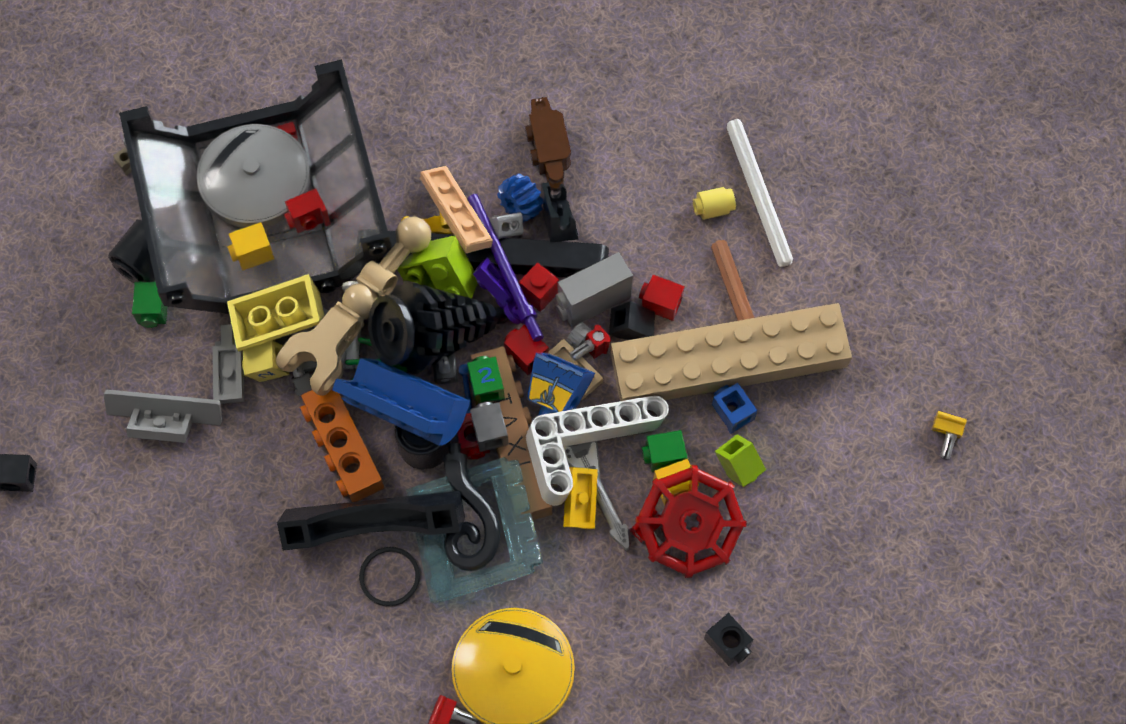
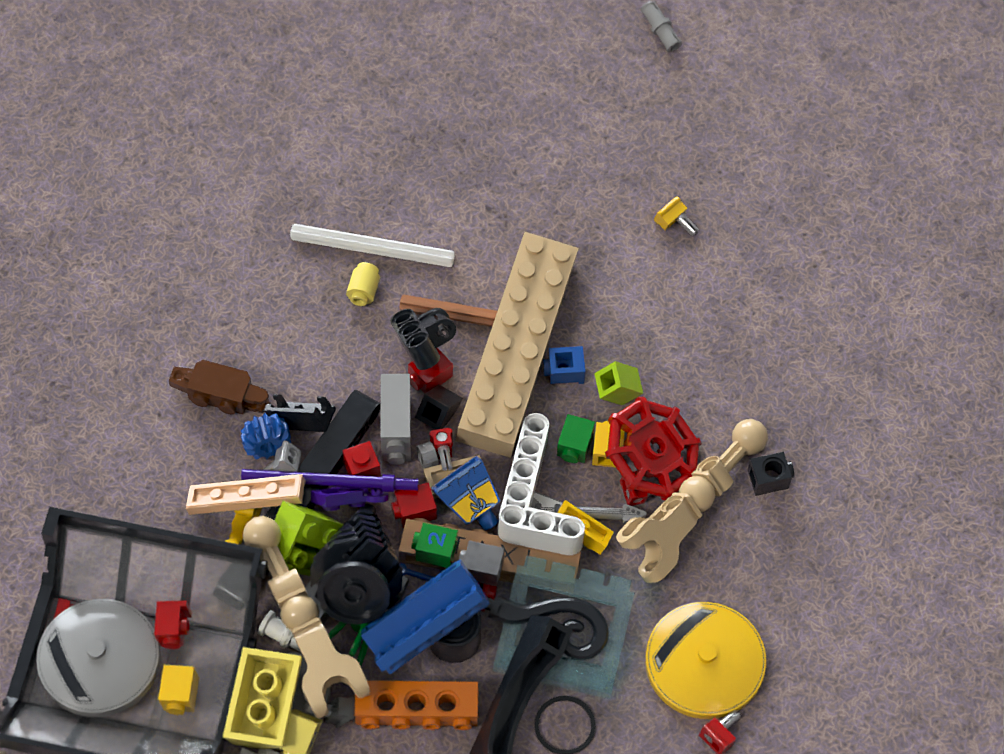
camera: 65 degrees left, 5 degrees down
(640, 575) = (680, 512): none -> tan piece
(683, 269) = (422, 335): none -> black piece

